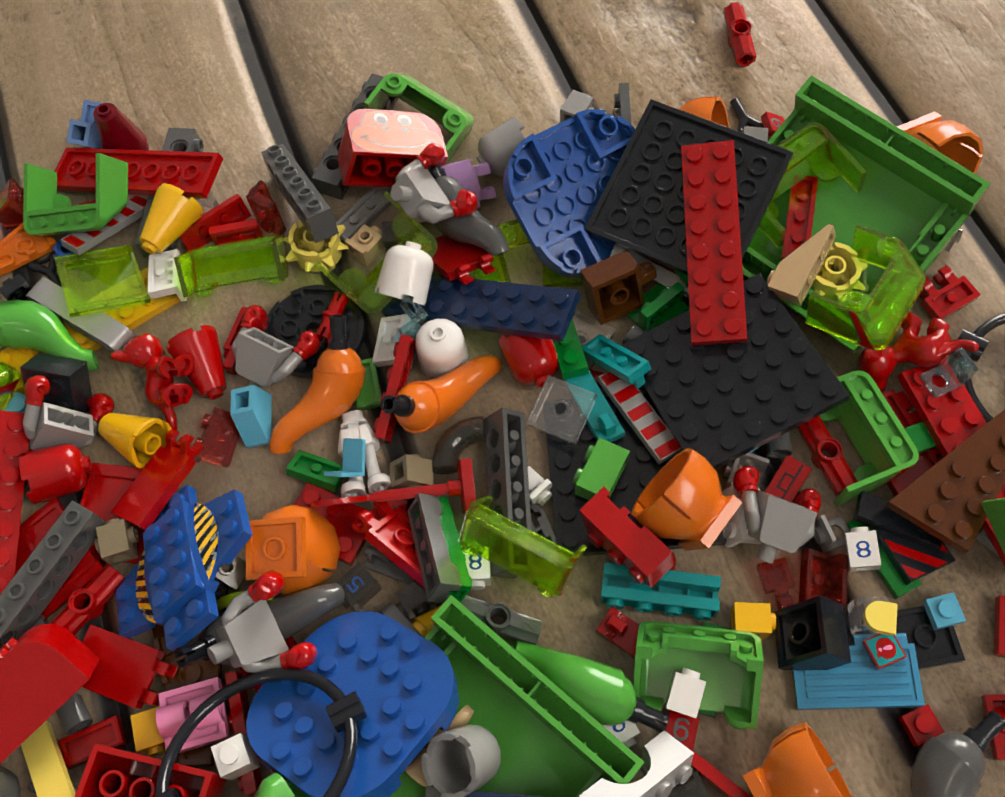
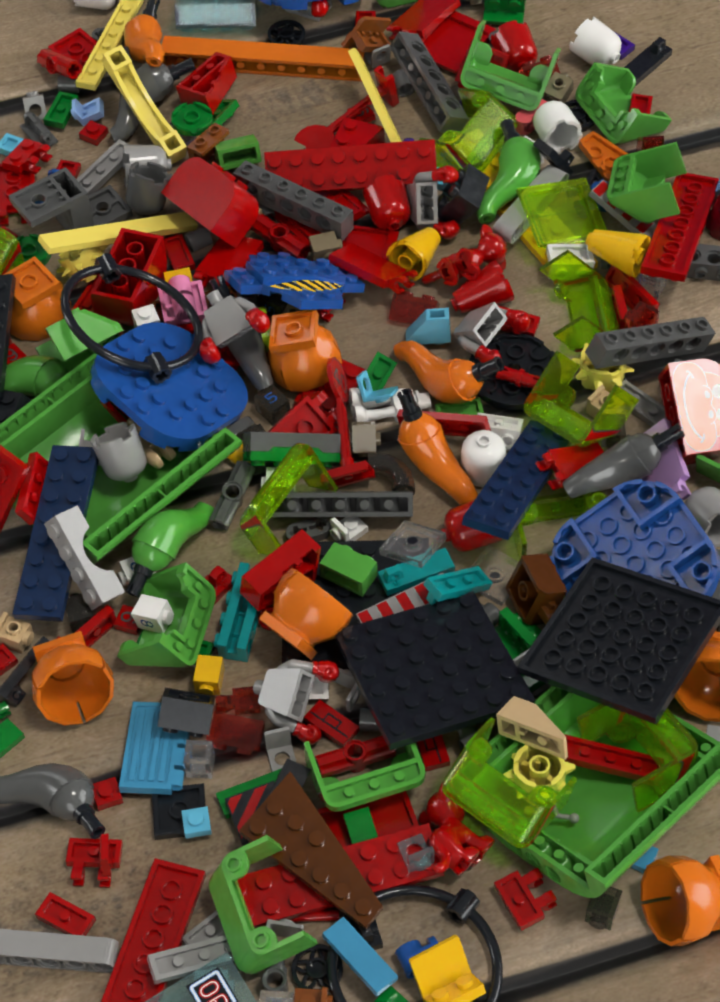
camera: 90 degrees right, 10 degrees down
(406, 272) = (542, 415): white cylinder -> none
(417, 319) = (503, 433): clear light blue bracket -> none
(421, 194) = (625, 418): light grey torso -> none
(571, 355) = (481, 553): green plate -> none
(713, 244) = (562, 649): red plate -> none
(862, 549) = (257, 764): white brick -> none
(881, 617) = (190, 751): light yellow tile -> none
(883, 650) = (168, 762): tile -> none

